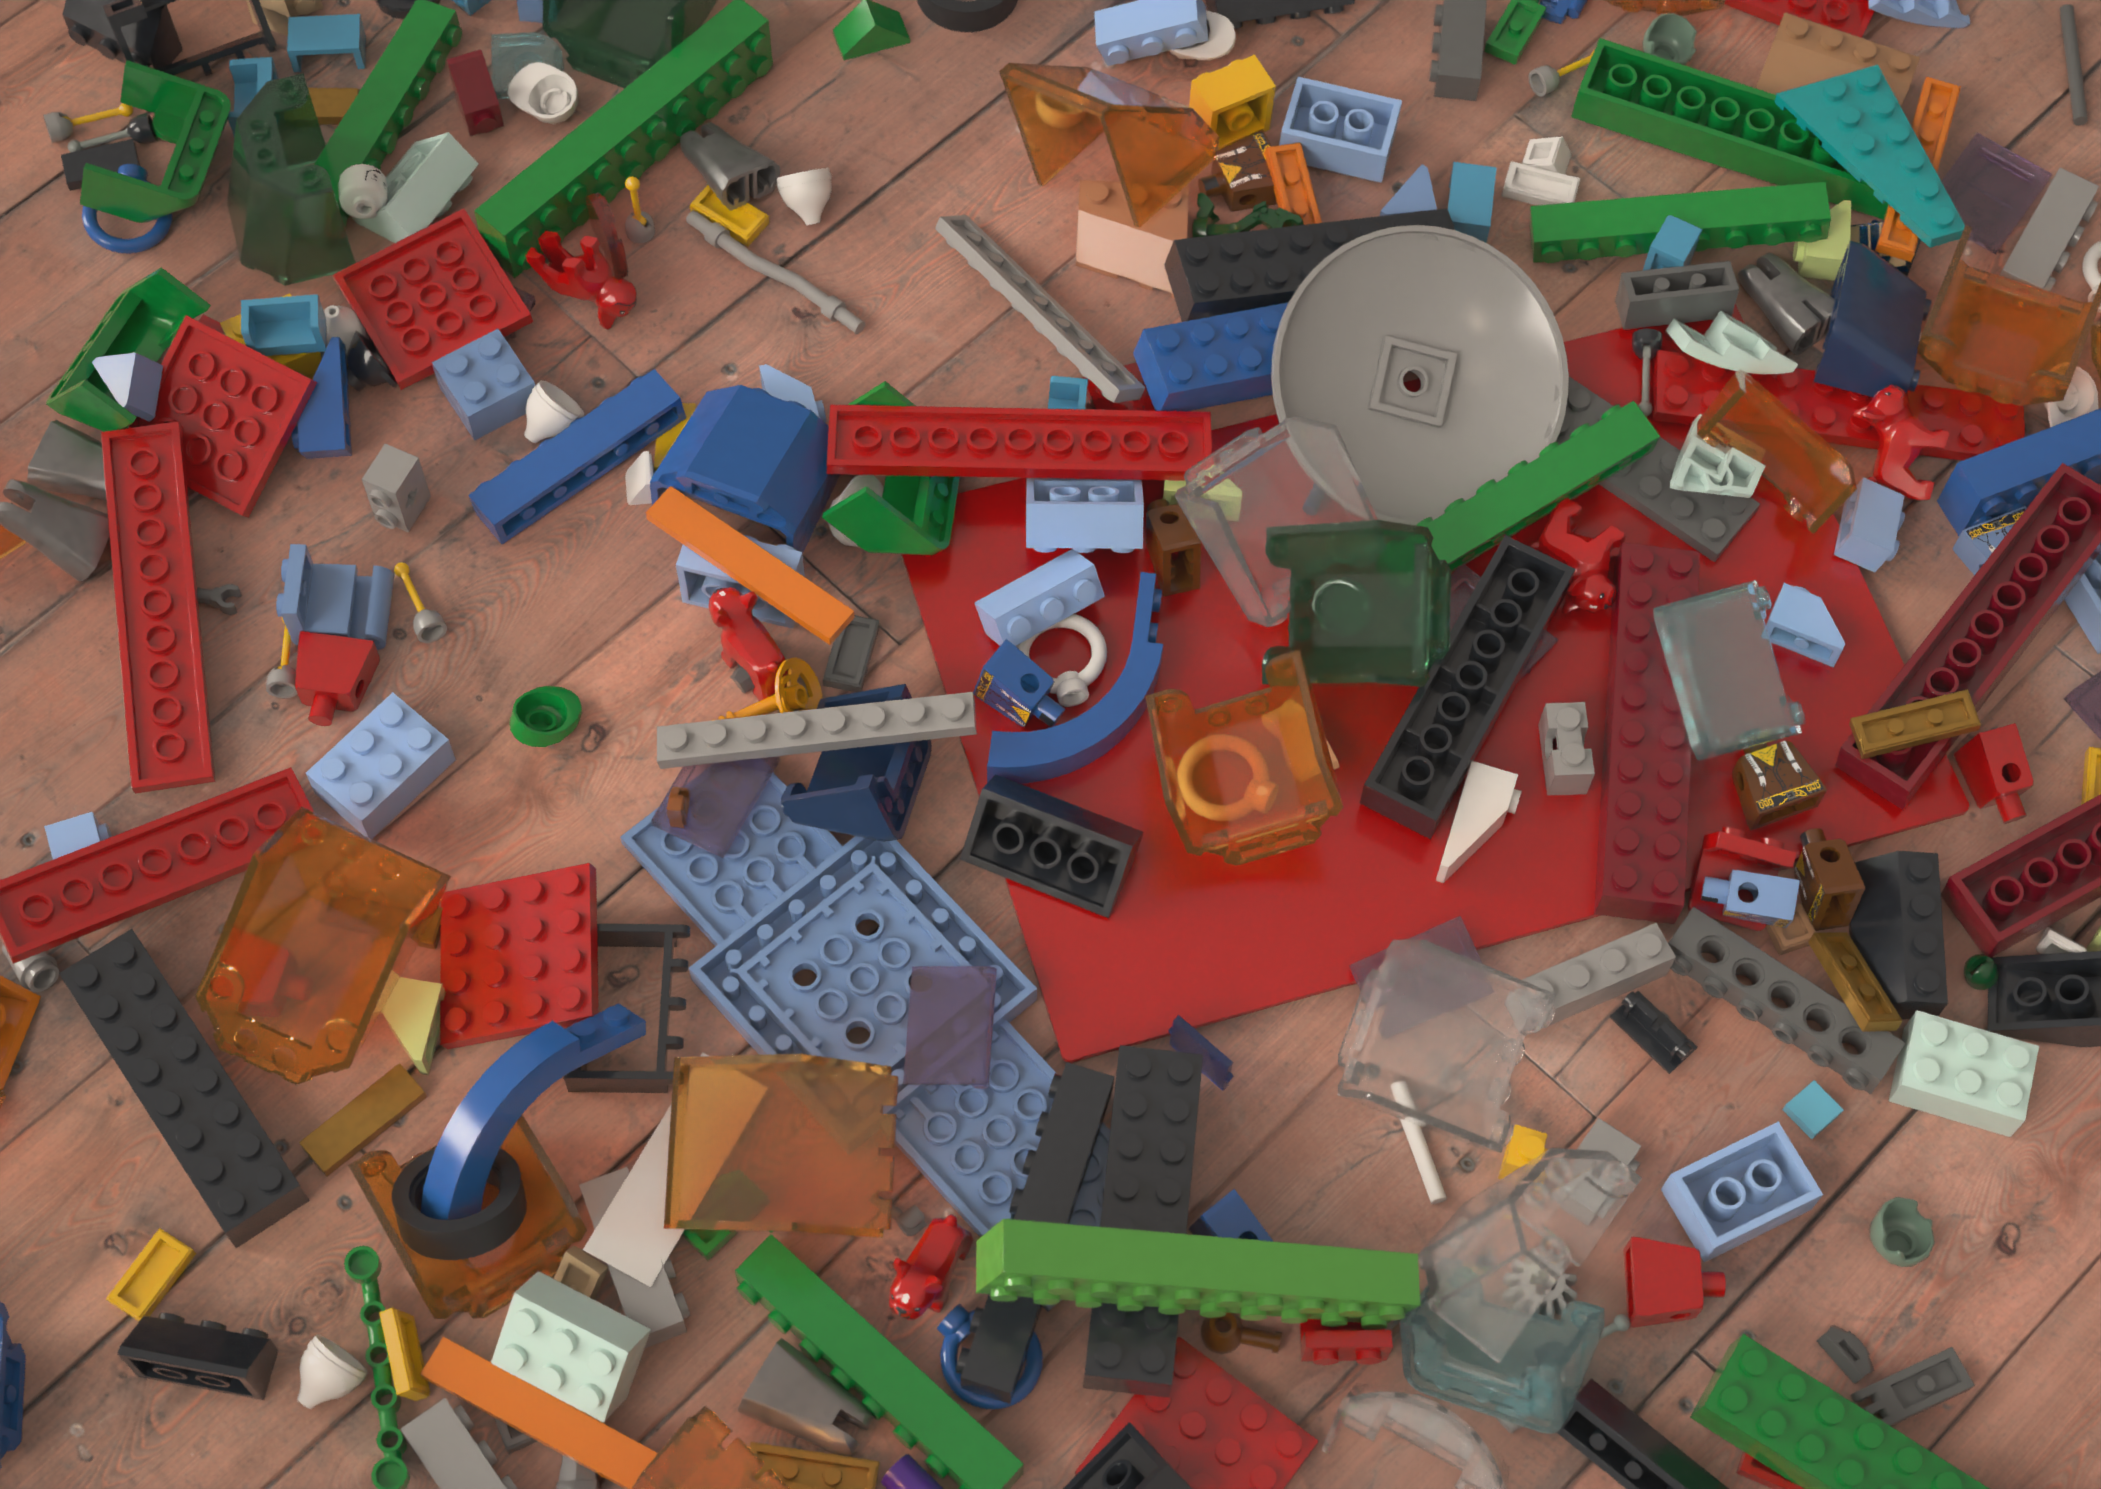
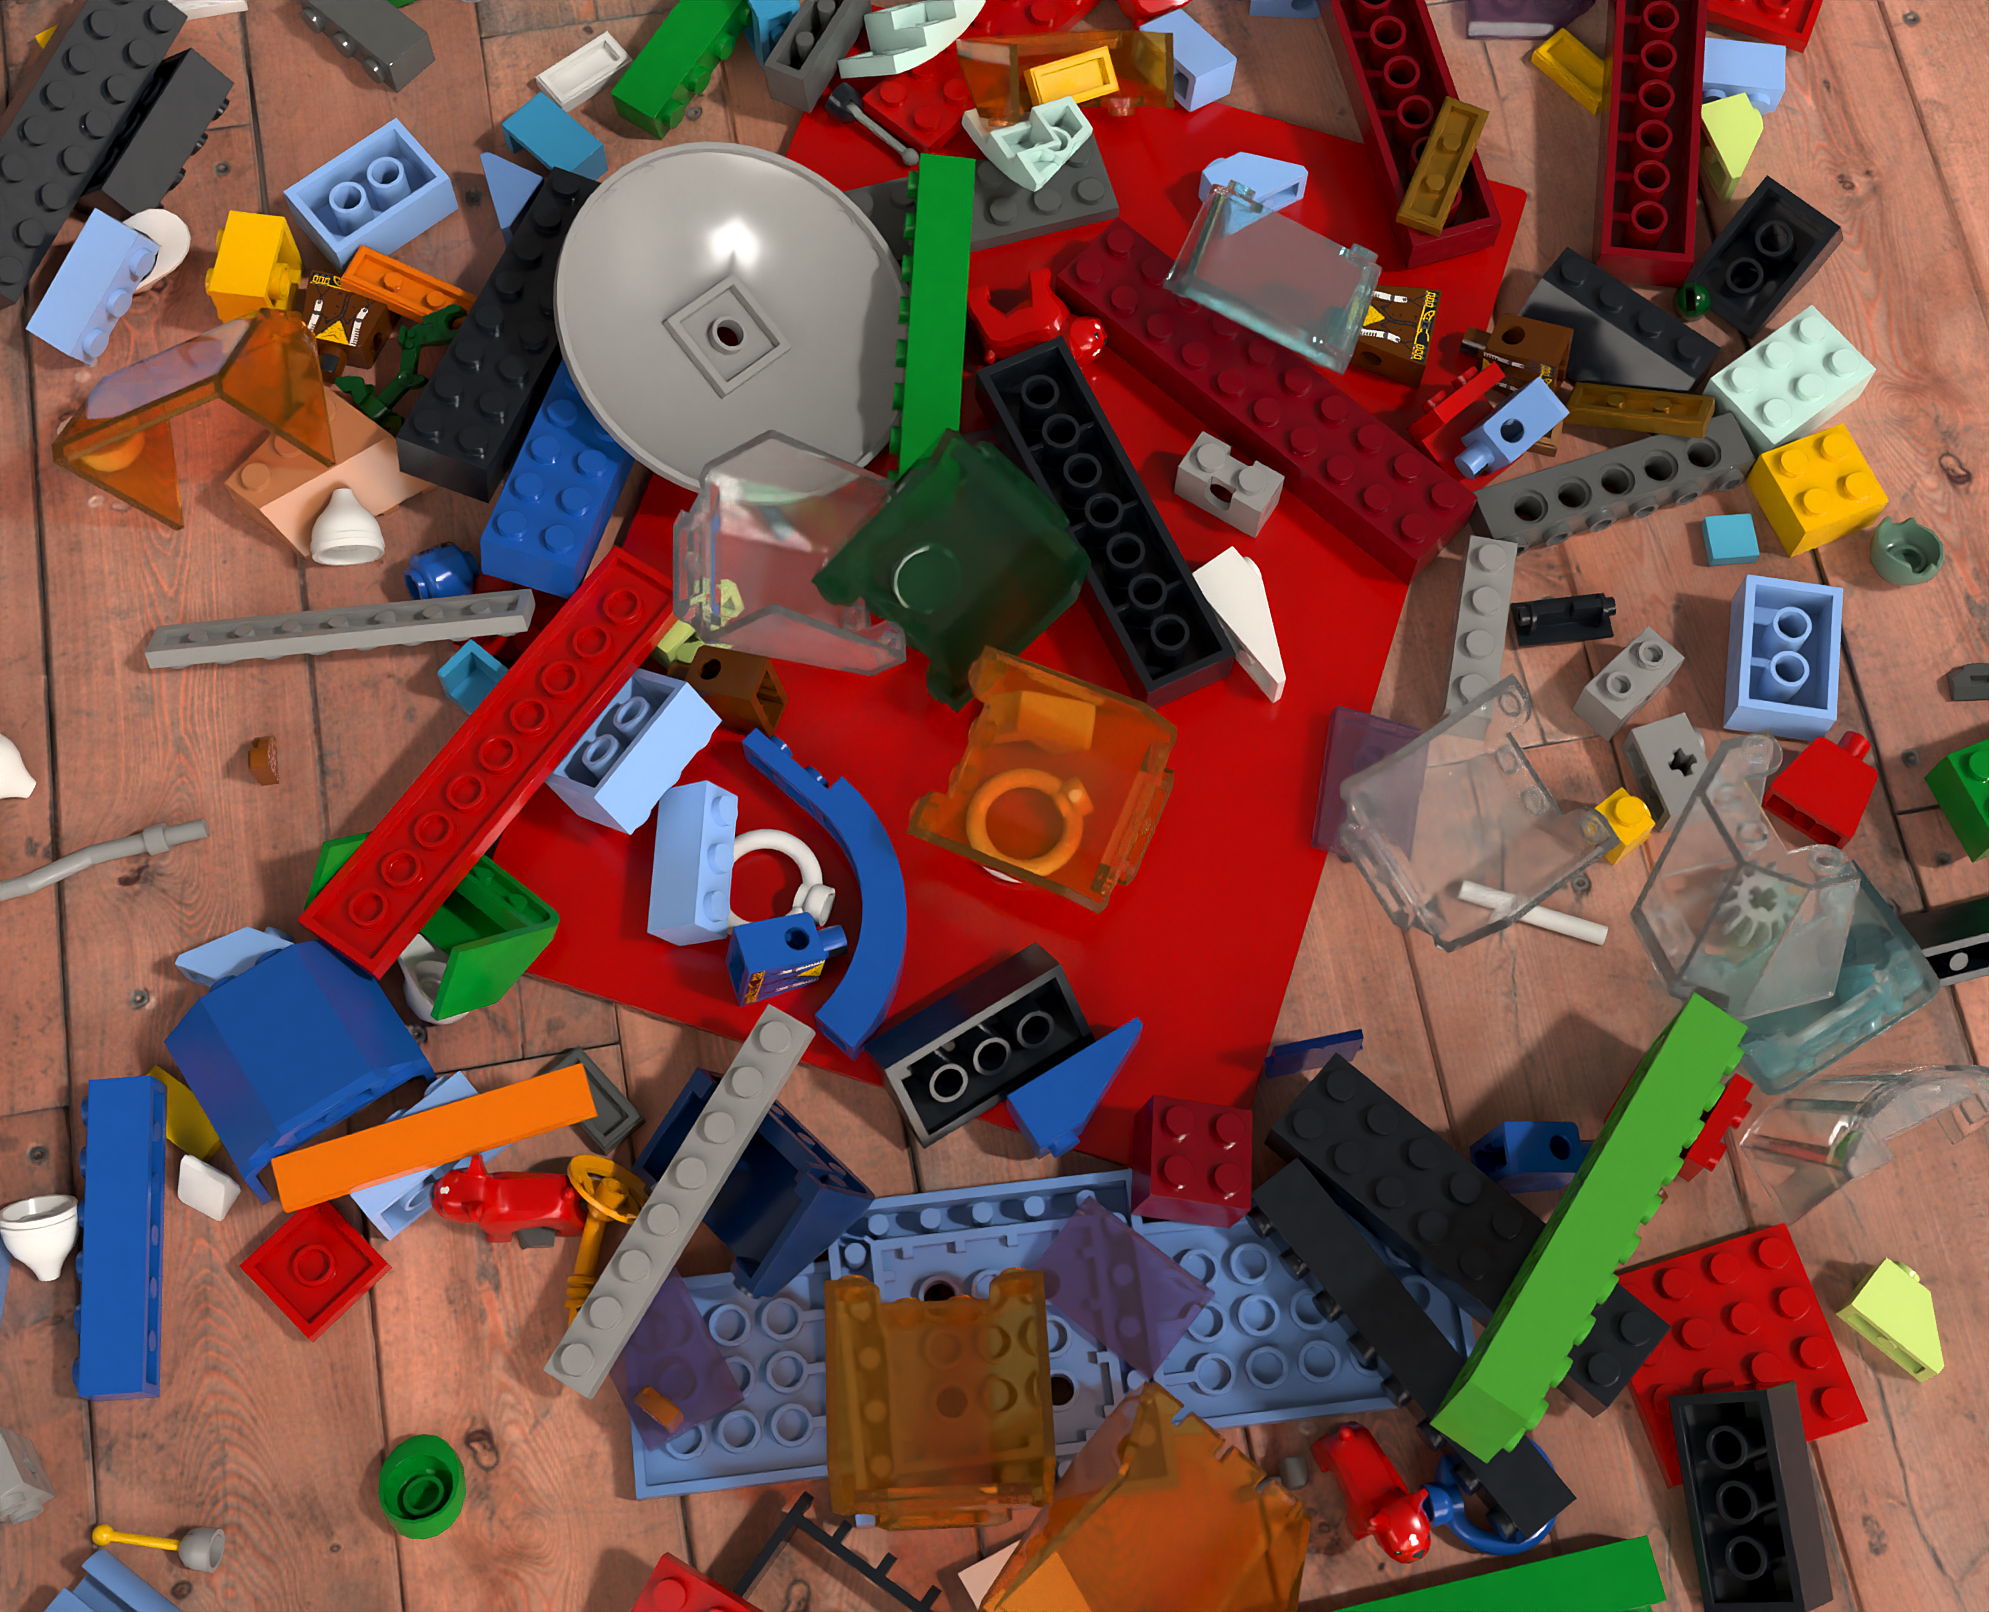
camera: 55 degrees left, 5 degrees up
(635, 570) = (315, 1268): none -> red plate
(786, 948) = (939, 1404): none -> clear orange windscreen
(926, 328) = (263, 760): none -> dark orange tile
(1059, 920) = (1064, 1099): none -> blue slope
(1064, 1016) = (1191, 1162): none -> dark red brick
(1105, 268) = (346, 533): none -> white helmet
(1120, 336) = (441, 572): none -> blue head
(1548, 154) = (553, 41): white slope -> none
(1637, 1100) = (1628, 683): none -> light grey brick
(1783, 461) = (1077, 76): none -> yellow tile
(1898, 1142) = (1816, 490): none -> yellow brick
(1997, 771) = (1519, 140): red torso -> none
(2055, 942) = (1714, 218): white slope -> none

